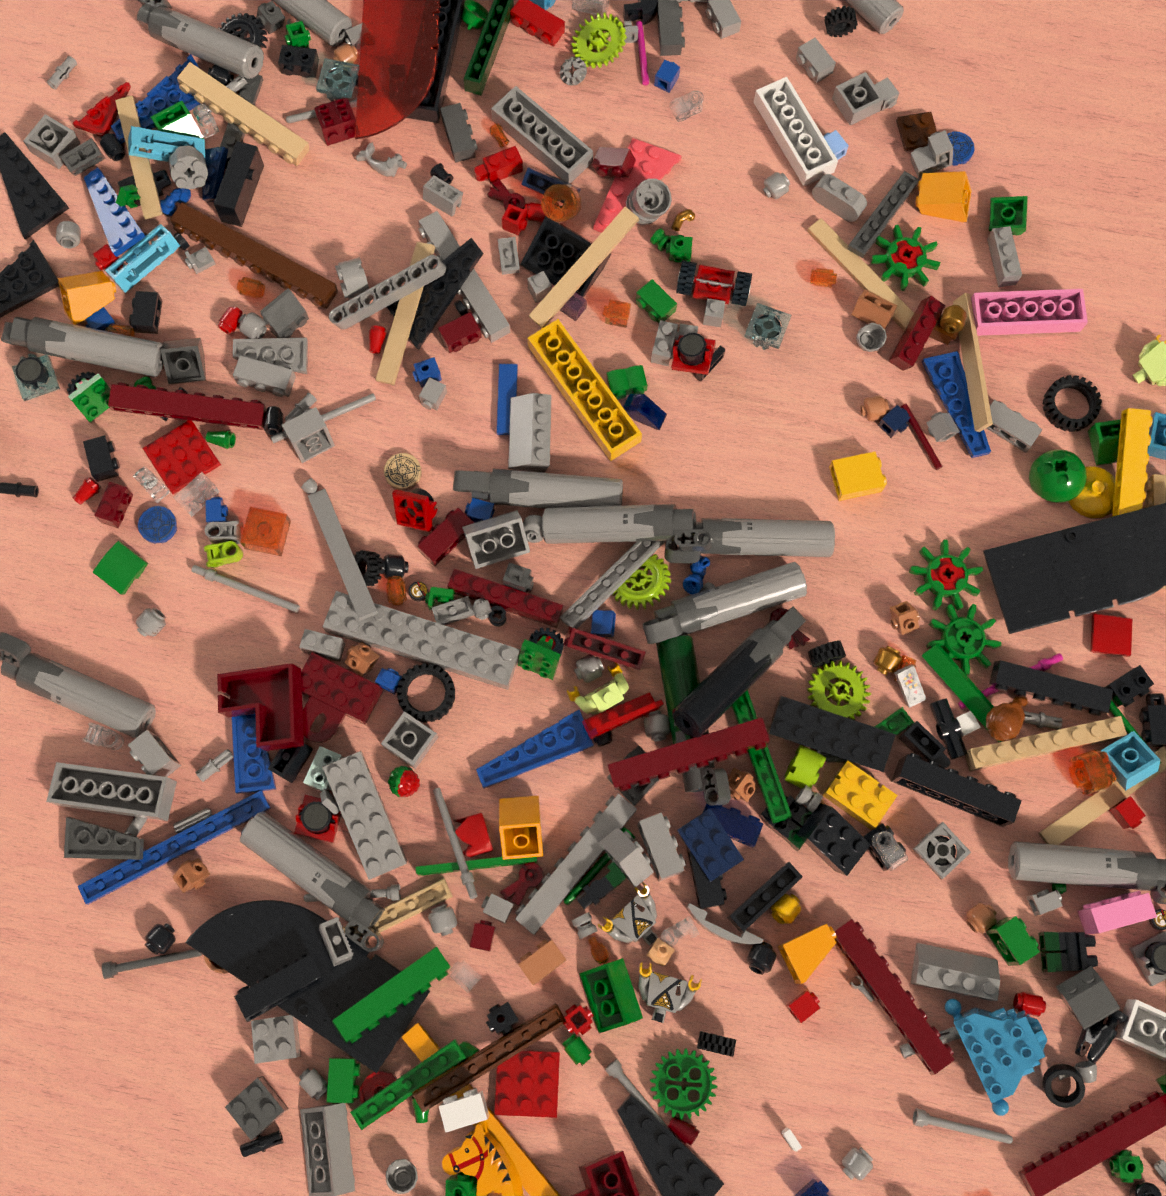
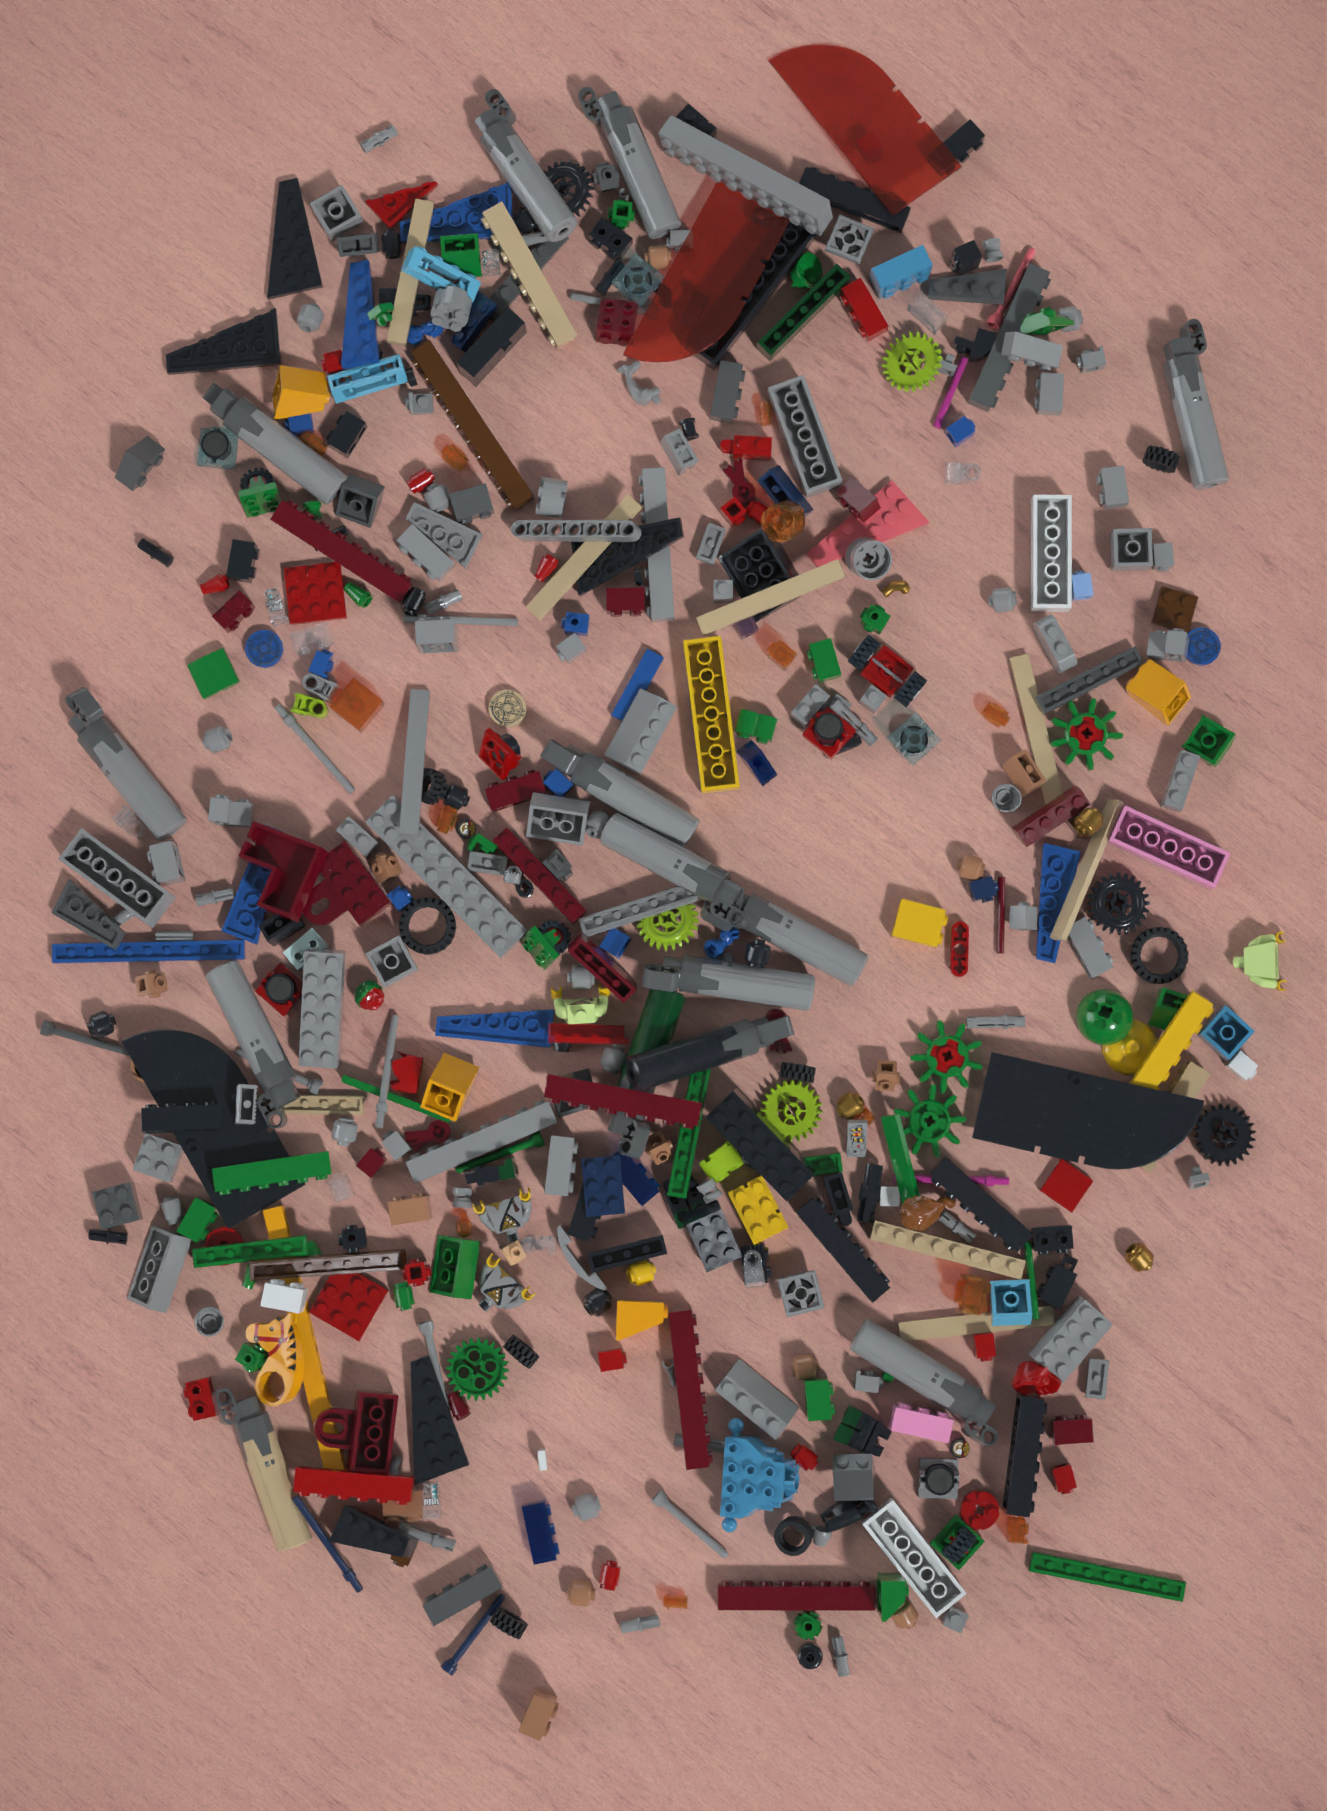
camera: 30 degrees right, 10 degrees up
(192, 682) = (230, 813): none -> light grey brick
(309, 486) = (417, 682): light grey hinge -> none
(312, 93) = (608, 277): none -> black axle
(329, 801) = (297, 981): light grey tile -> none
(578, 75) = (873, 388): light grey gear -> none
(627, 856) = (527, 1159): light grey brick -> none
(660, 239) = (862, 600): green wheel -> none
(728, 345) = (869, 738): none -> light grey pin
(735, 567) = (757, 953): none -> black head
(914, 491) = (952, 953): none -> red beam
(976, 522) = (996, 1021): none -> light grey pin
(1006, 386) = (1122, 921): none -> black gear

